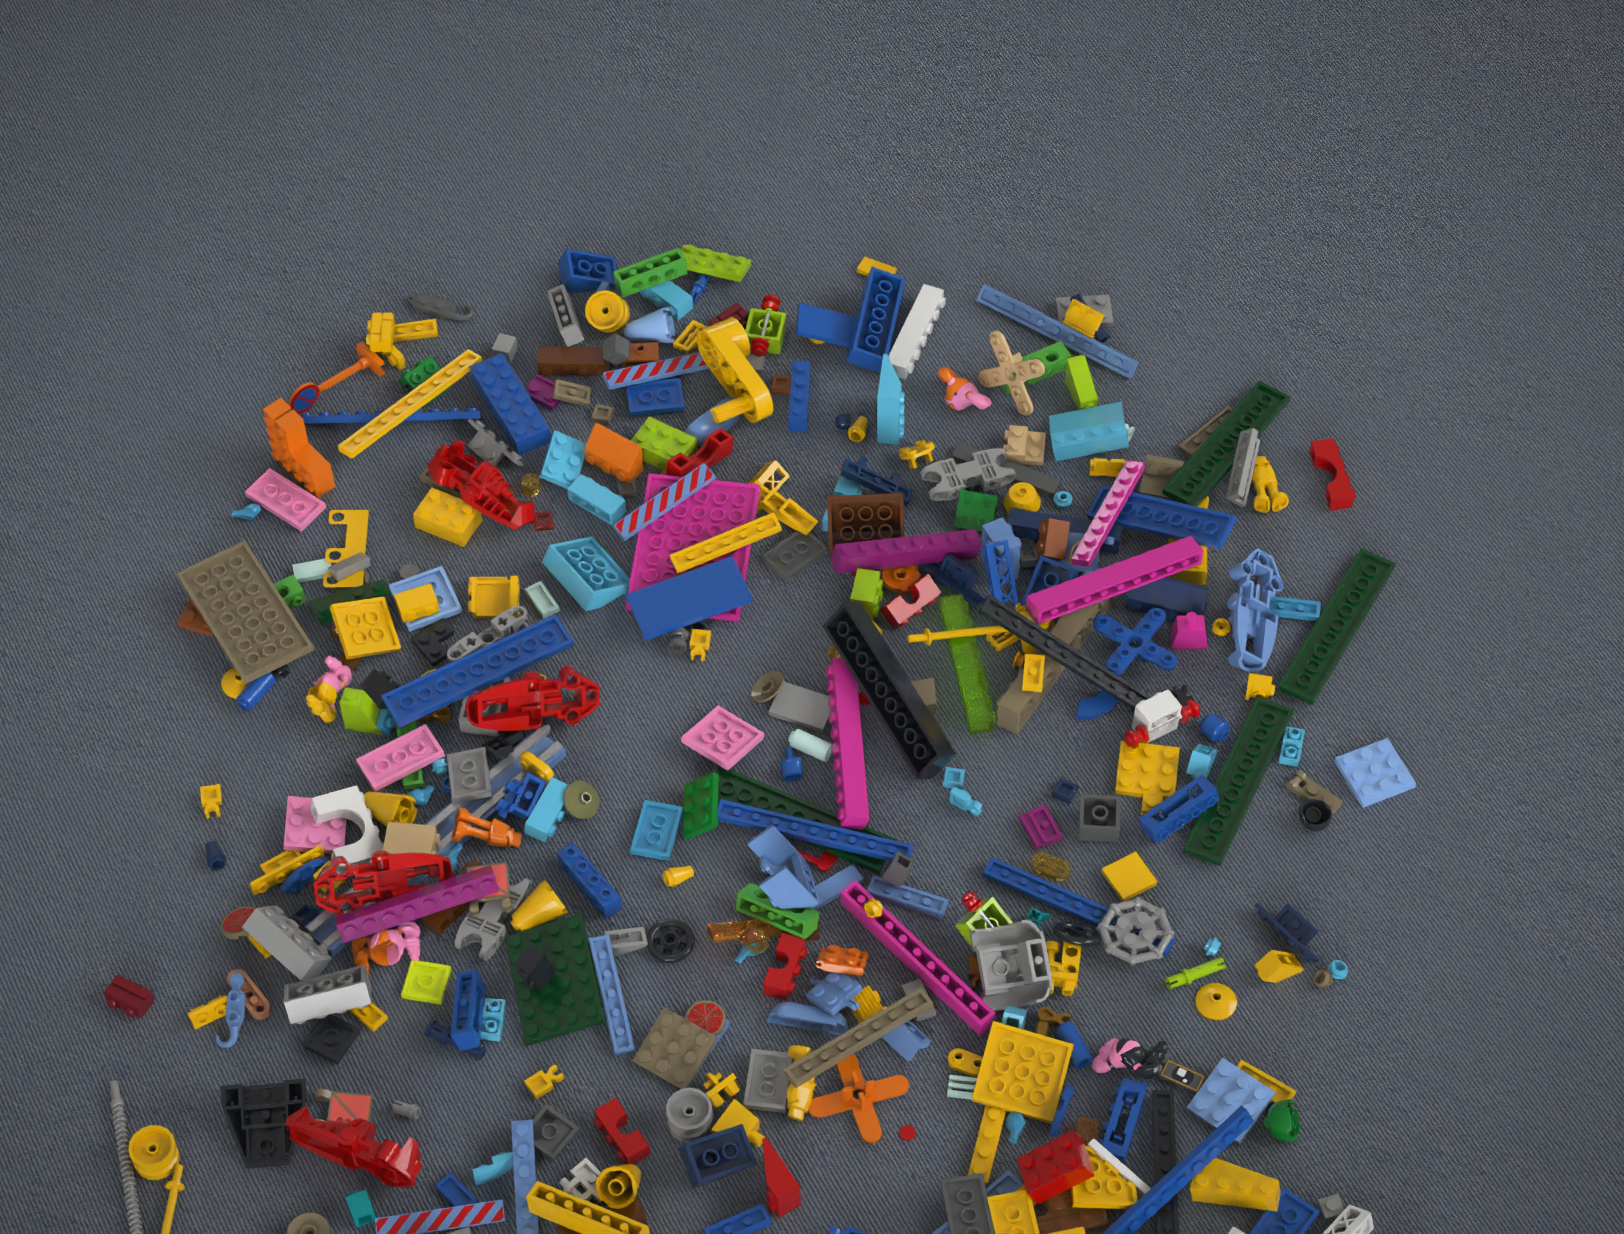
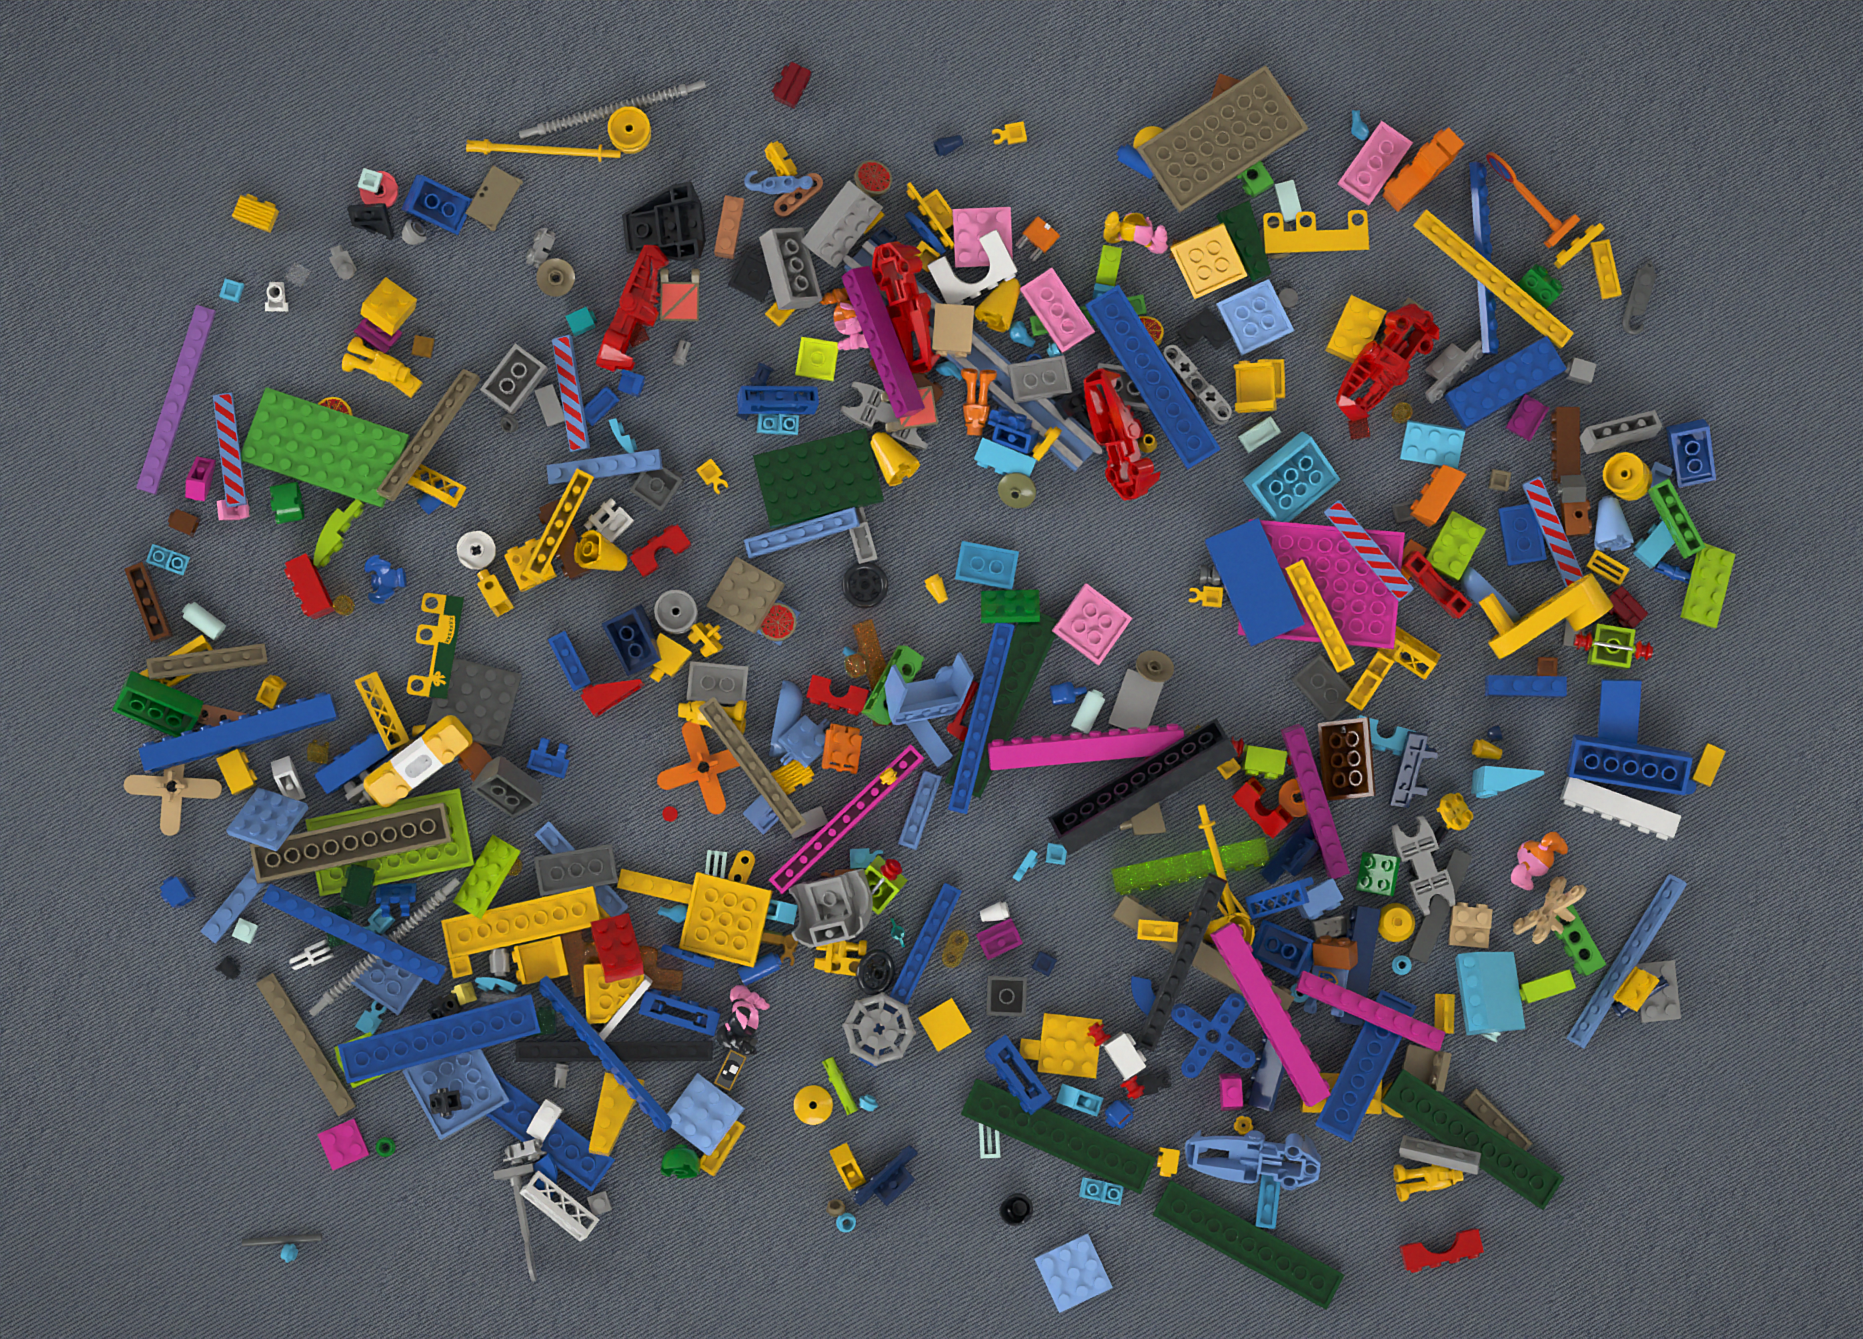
camera: 80 degrees right, 30 degrees up
(275, 1058) = (729, 227): none -> nougat brick
(320, 777) = (1040, 235): none -> orange piece
(349, 566) = (1289, 236): light grey slope -> none
(377, 685) = (1138, 283): black piece -> none
(381, 332) = (1586, 239): yellow brick -> none
(416, 603) = (1240, 309): yellow brick -> none
(434, 1159) = (631, 383): none -> blue panel
(534, 968) = (814, 458): black piece -> none
(571, 392) = (1522, 446): dark tan plate -> none
(589, 880) = (926, 503): blue brick -> none
(597, 499) = (1384, 482): medium azure brick -> none
(898, 869) = (939, 799): dark grey brick -> none
(956, 949) = (861, 858): none -> medium azure plate
(1013, 829) = (995, 912): none -> white cone
(1246, 846) = (997, 1141): none -> light aqua tile
(1312, 791) = (1046, 1211): dark tan plate -> none

